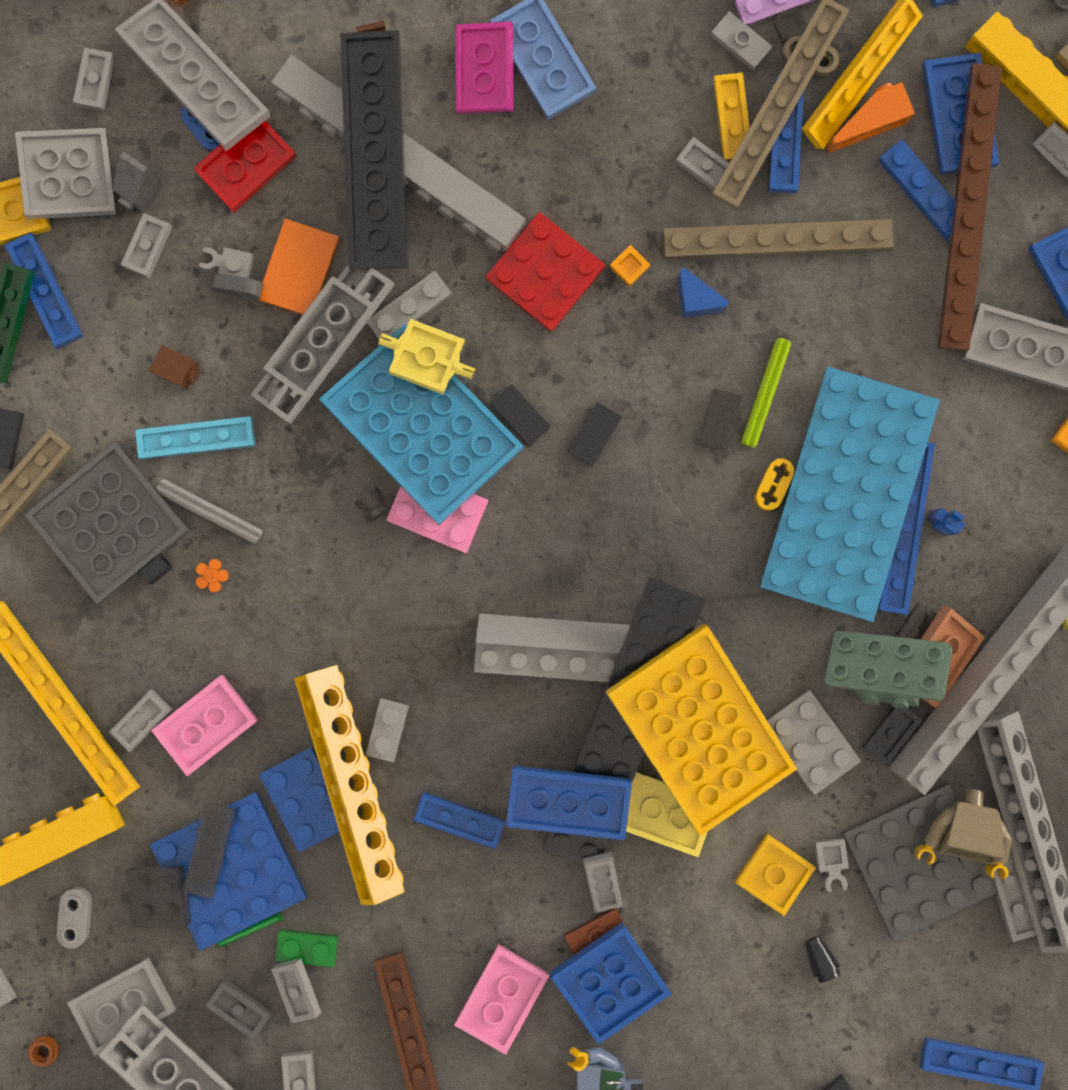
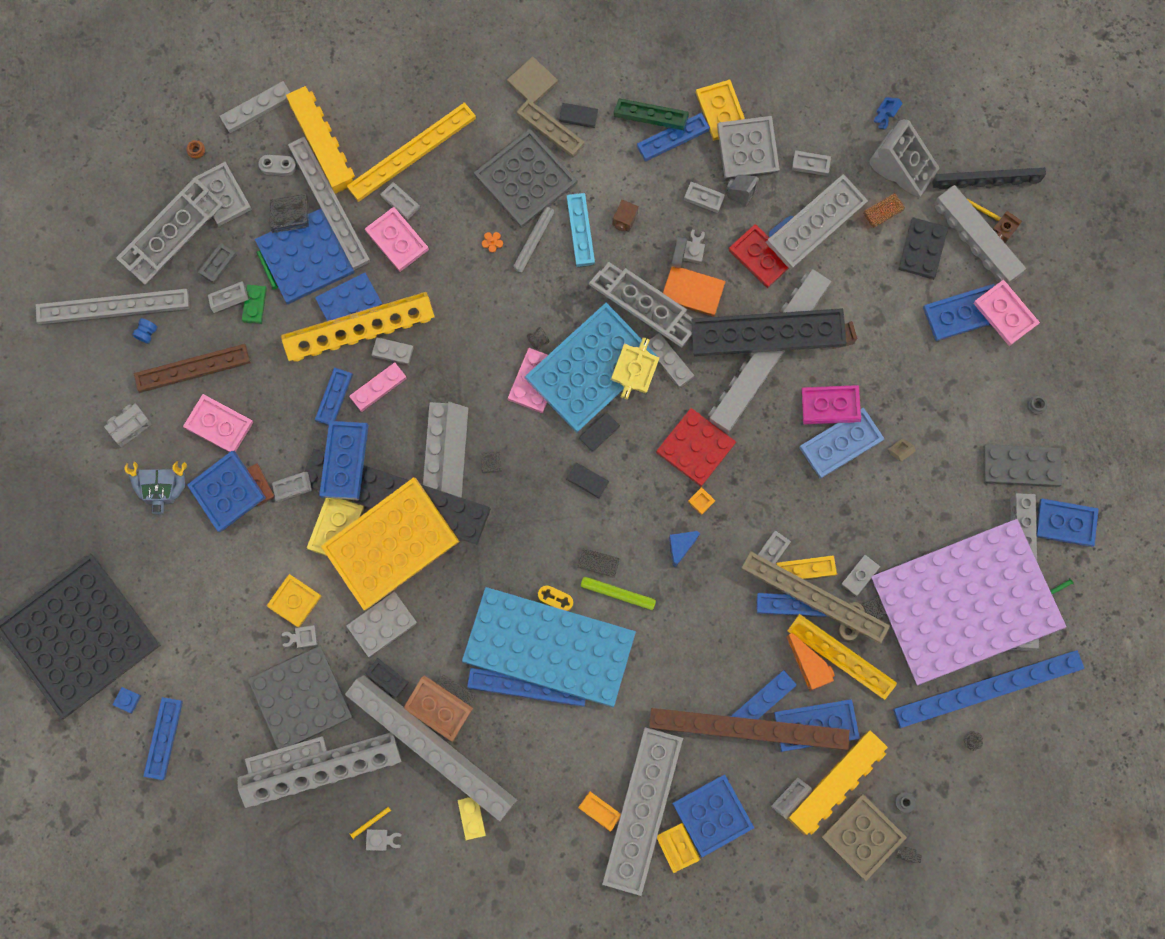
camera: 90 degrees right, 10 degrees down
(138, 835) = (329, 203): none -> light grey plate
(155, 569) = (496, 207): black hinge -> none
(209, 850) = (318, 242): clear smoke plate -> none
(444, 752) = (378, 387): none -> bright pink plate
(778, 239) = (724, 602): dark tan plate -> none
(821, 960) = (236, 630): black cone -> none
(889, 668) = (430, 669): sand green bracket -> none
(945, 522) = (529, 713): blue plate -> none
(970, 833) = (318, 725): dark tan torso -> none

